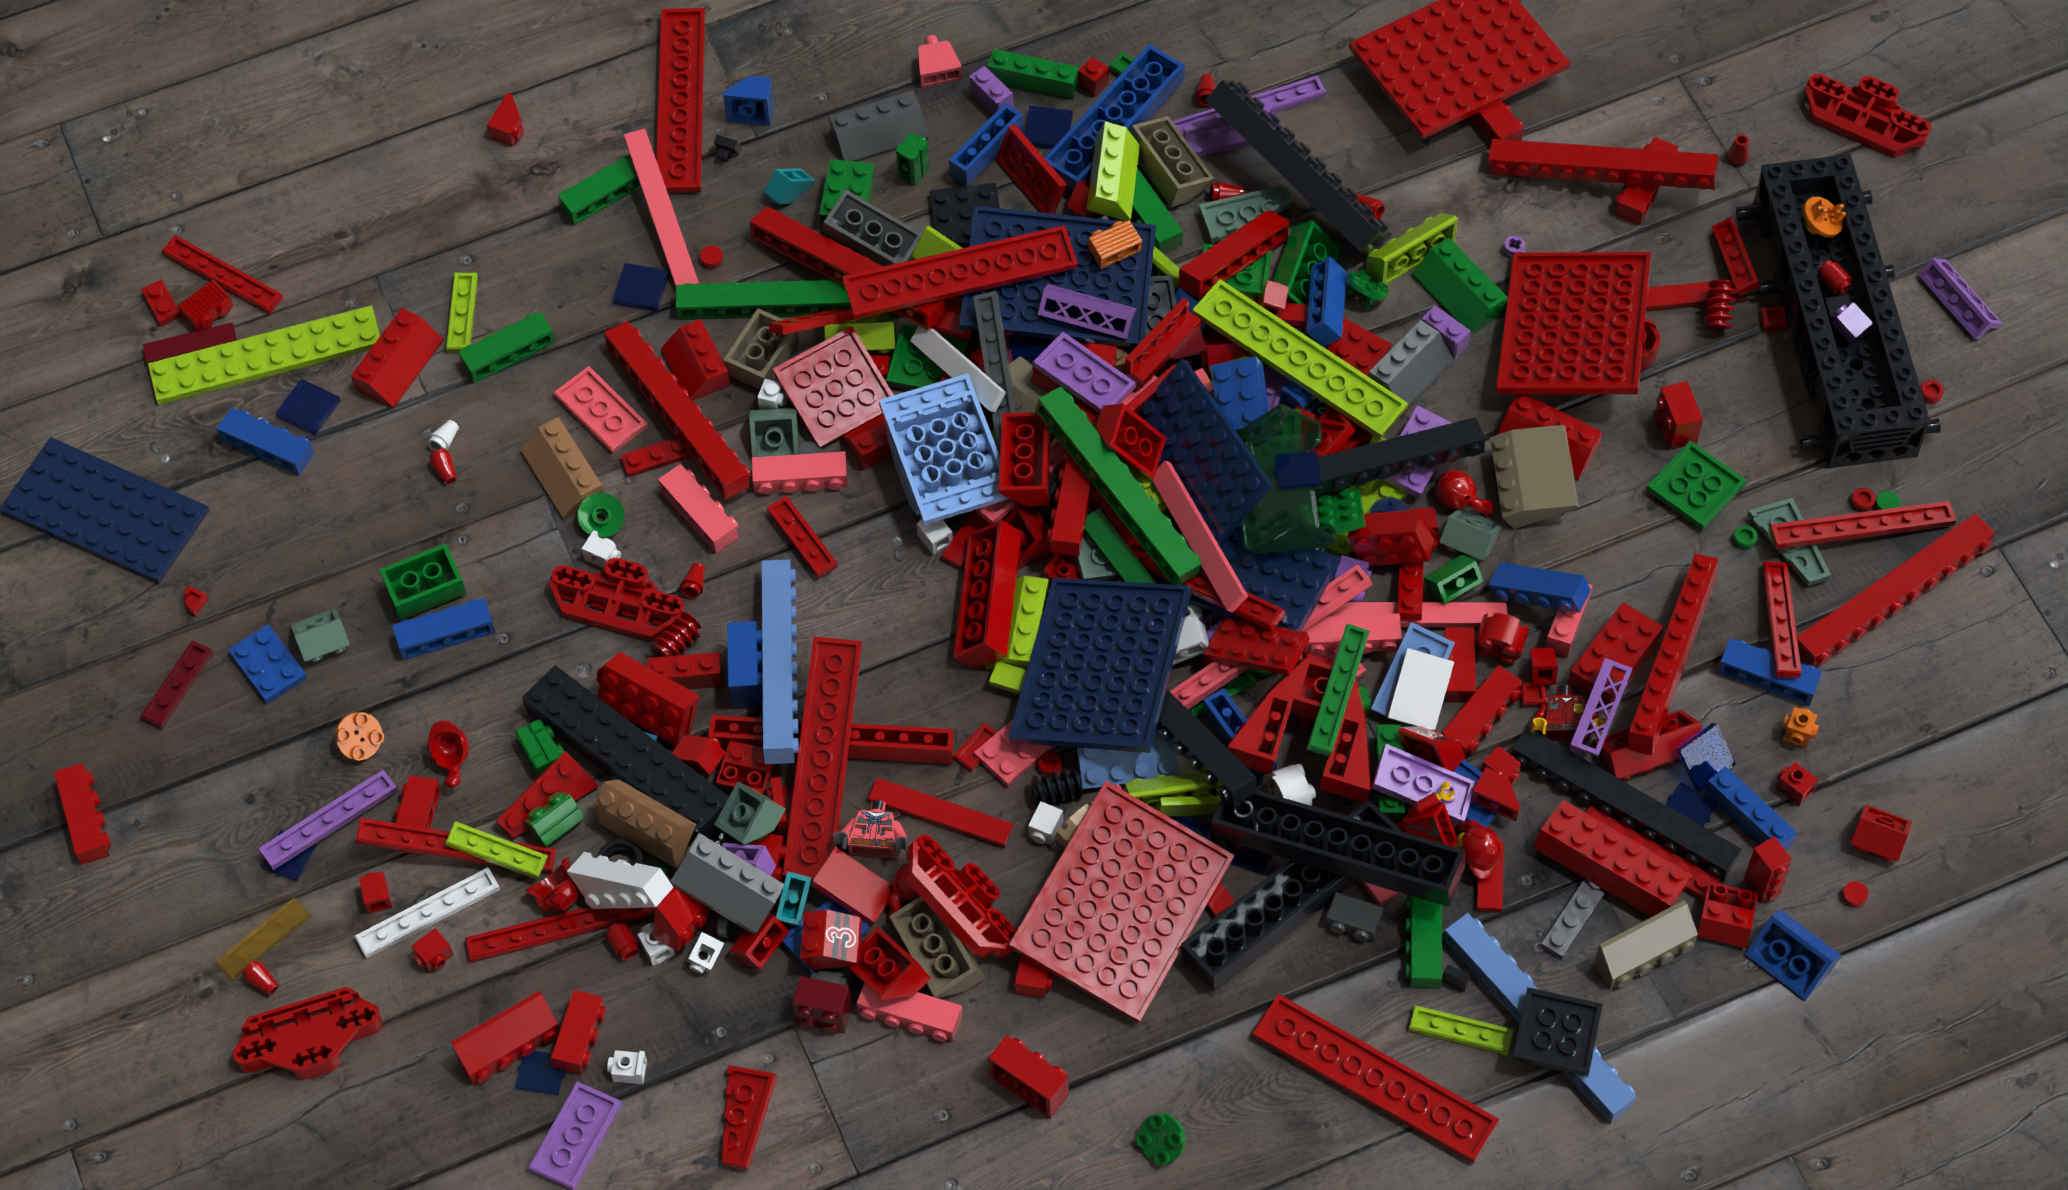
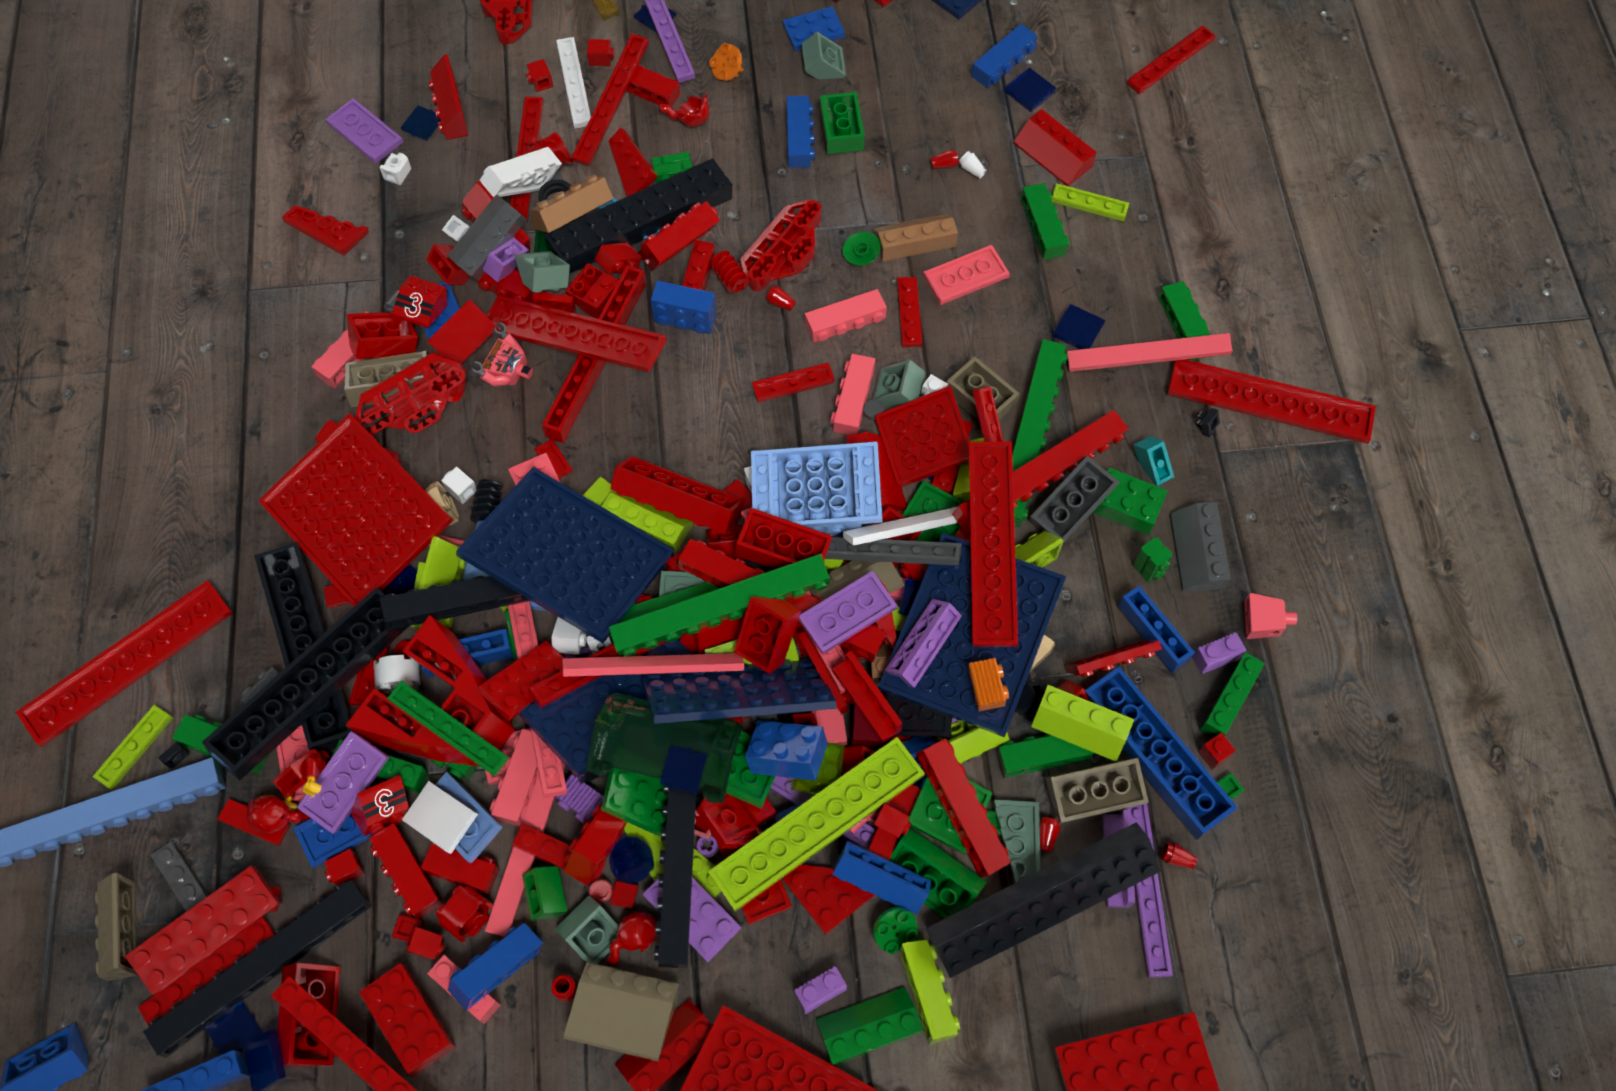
camera: 105 degrees right, 5 degrees up
(161, 302) = (1154, 19): red plate -> none
(189, 342) = (1110, 30): dark red tile -> none
(205, 306) = (1141, 41): red brick -> none
(264, 355) = (1087, 73): lime plate -> none
(496, 850) = (594, 120): lime tile -> none
(506, 122) = (1276, 267): red slope -> none
(554, 818) = (608, 162): green brick -> none
(578, 1032) = (436, 144): red brick -> none
(599, 550) = (829, 242): white brick -> none
(677, 409) = (941, 317): red brick -> none
(695, 361) = (992, 348): red slope -> none
(711, 257) = (1095, 386): red tile -> none
(750, 101) = (1251, 448): blue slope -> none
(778, 662) = (675, 325): medium blue brick -> none
(793, 898) = (468, 289): teal slope -> none
(822, 1005) = (374, 287): dark red brick -> none
(942, 812) = (505, 418): red tile -> none
(955, 207) = (1087, 598): black plate -> none
(1029, 1076) = (249, 407): red brick -> none
(1047, 126) = (1170, 695): clear blue tile -> none
(1153, 1129) = (148, 488): green plate -> none
(1375, 204) = (994, 969): red cone -> none
(1413, 363) = (785, 936): dark grey slope -> none
(1496, 794) = (311, 847): red slope -> none
(1532, 533) = (559, 983): none -> red brick
(1557, 1032) = (69, 812): black plate -> none
(1562, 716) = (364, 946): torso -> none
(1590, 709) = (349, 964): medium lavender fence -> none
(1727, 914) = (108, 1017): red slope -> none
(1768, 869) = (114, 1065): red brick -> none

